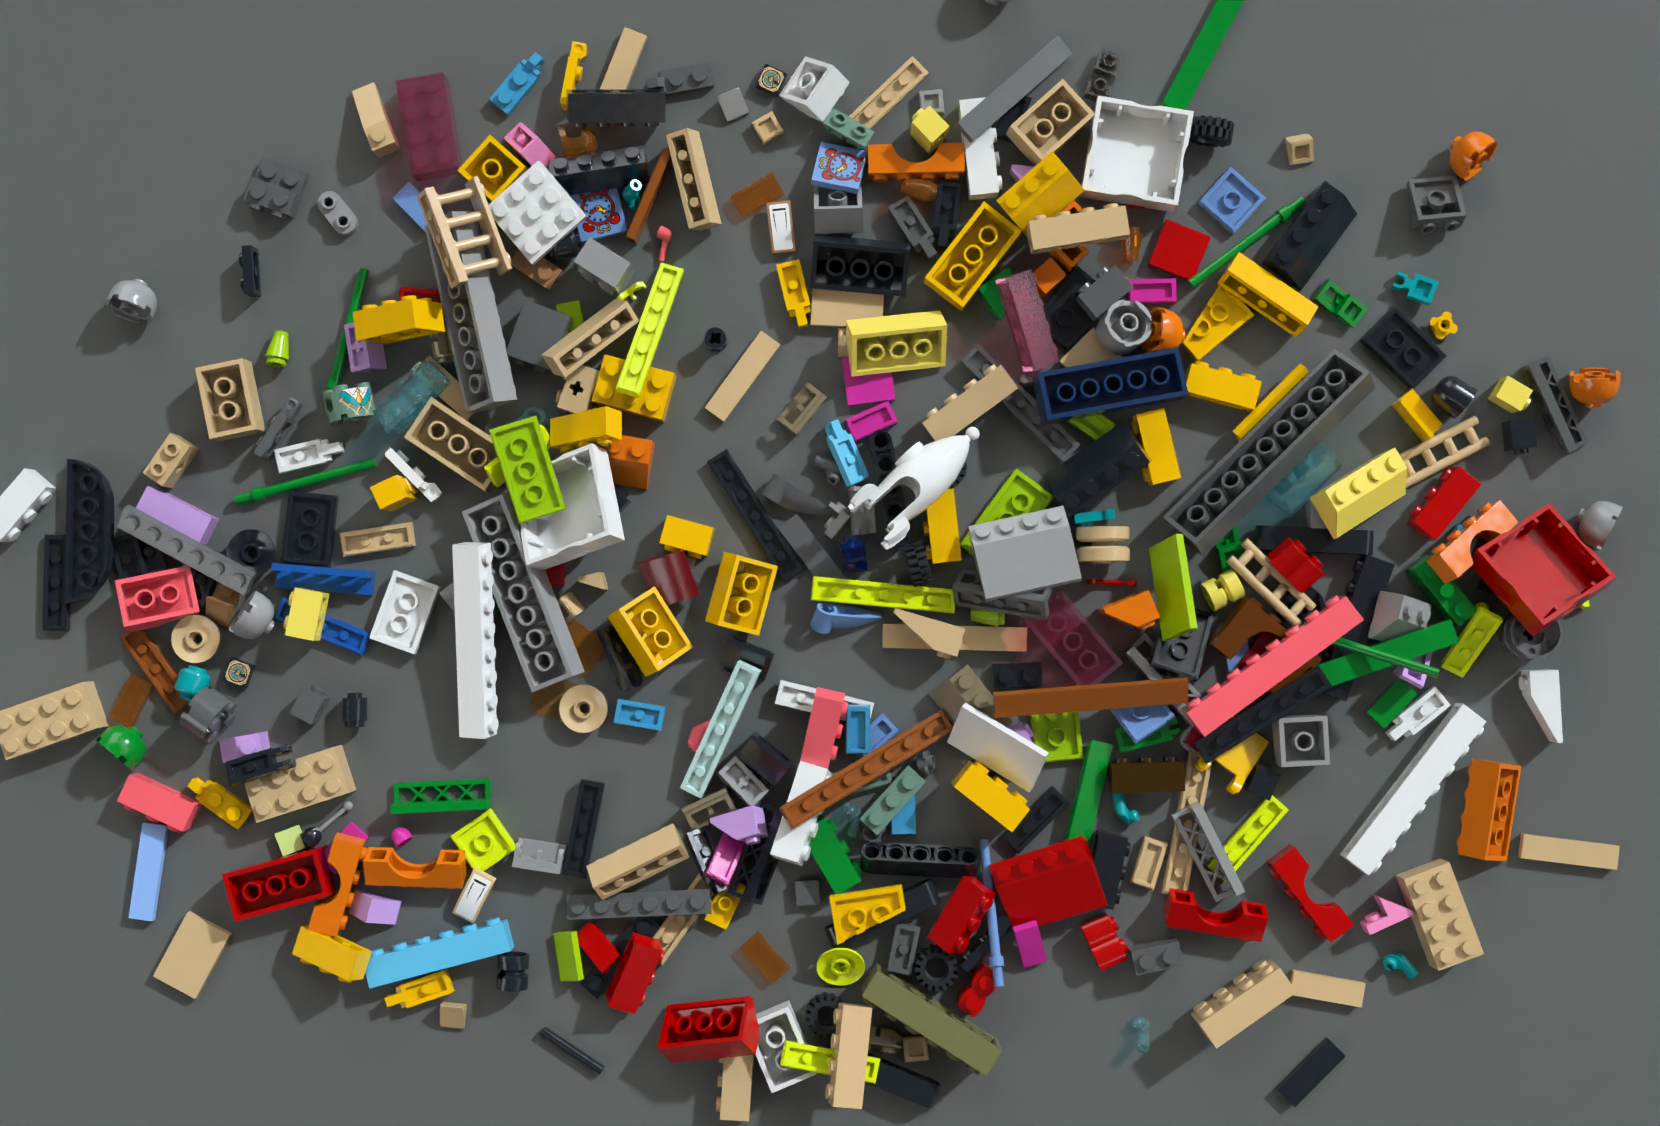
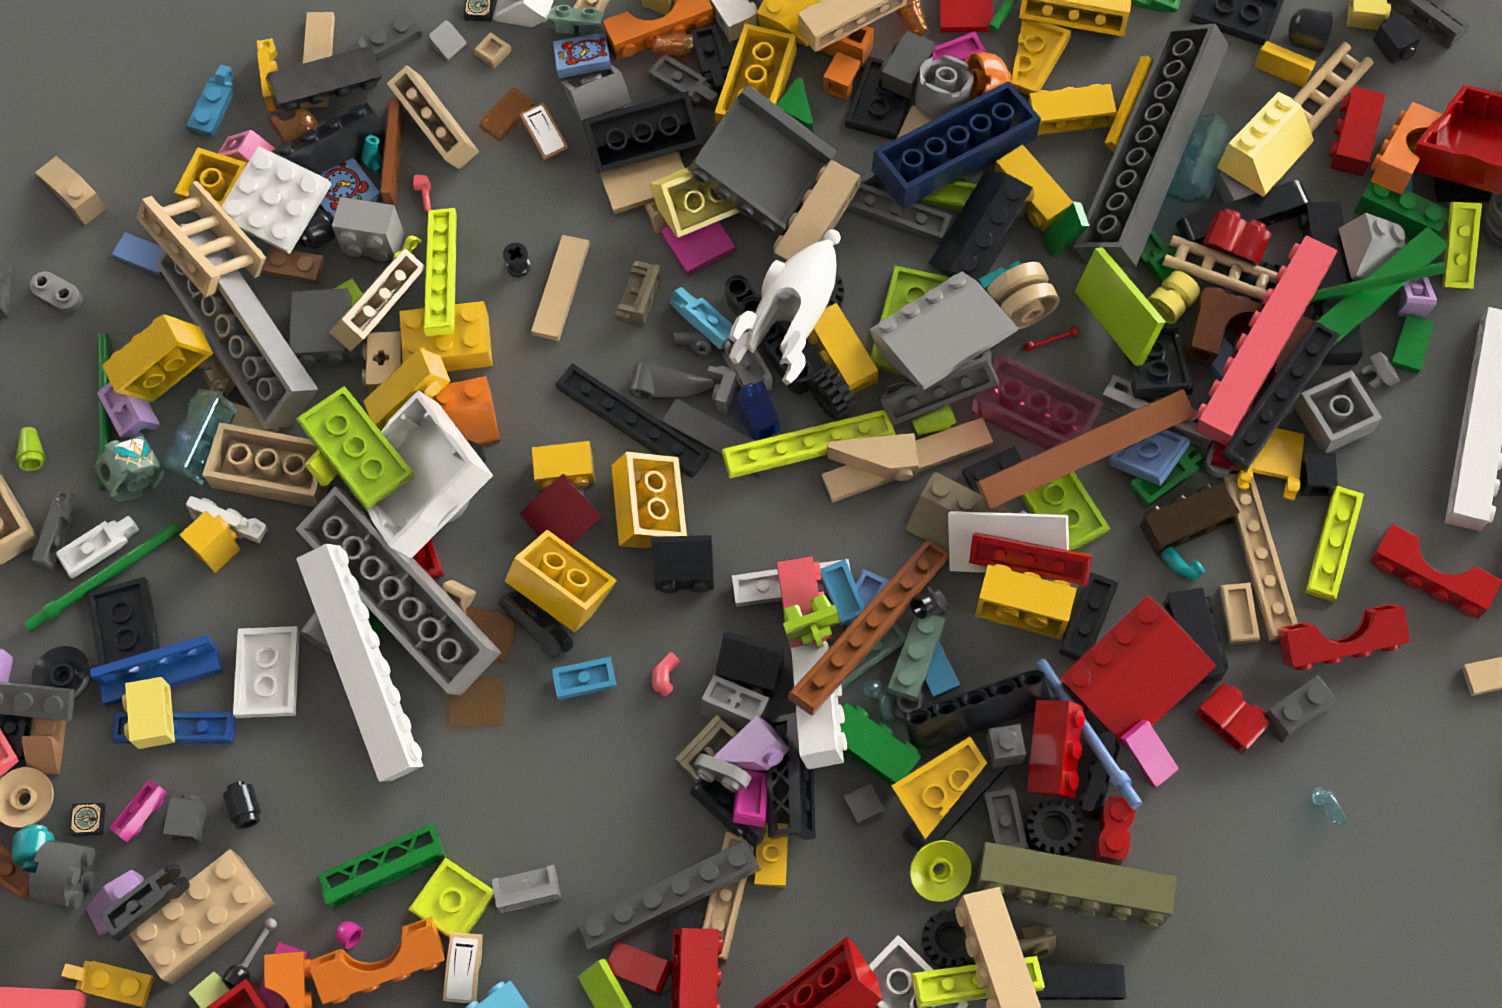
camera: 25 degrees left, 20 degrees down
(254, 617) = (86, 743): light grey cylinder -> none
(277, 683) = (144, 803): none -> dark pink plate
(378, 539) = (208, 607): tan tile -> none
(429, 126) = (127, 166): clear pink brick -> none
(572, 714) = (508, 684): tan dish -> none
(583, 828) = (567, 835): black plate -> none
(595, 579) = (475, 552): tan slope -> none
(637, 861) = (647, 843): tan brick -> none
(716, 843) = (729, 775): none -> light grey plate
(720, 728) = (684, 651): light aqua plate -> none
(765, 957) = (846, 901): clear orange tile -> none
(794, 291) = (583, 185): yellow hinge -> none
(833, 749) = (813, 625): none -> lime hips
(835, 615) = (765, 487): medium blue piece -> none
(871, 420) = (712, 283): dark pink tile -> none
(912, 767) = (923, 605): none -> black hinge
(915, 1048) = (1074, 937): tan tile -> none
(924, 903) = (1005, 746): none -> flat silver brick
(942, 341) = (761, 160): none -> dark grey panel
(1007, 769) = (1030, 557): none -> red tile
(1027, 320) = (839, 114): clear pink brick -> none
(1089, 790) = (1131, 552): green tile -> none
(1133, 610) = (1086, 350): orange slope -> none
(1164, 498) = (1065, 229): none -> green tile
(1215, 847) = (1307, 561): light grey fence -> none
(1242, 1002) = (1425, 716): tan brick -> none
(1357, 717) = (1384, 371): none -> light grey tile
(1418, 714) = (1447, 342): white hinge -> none

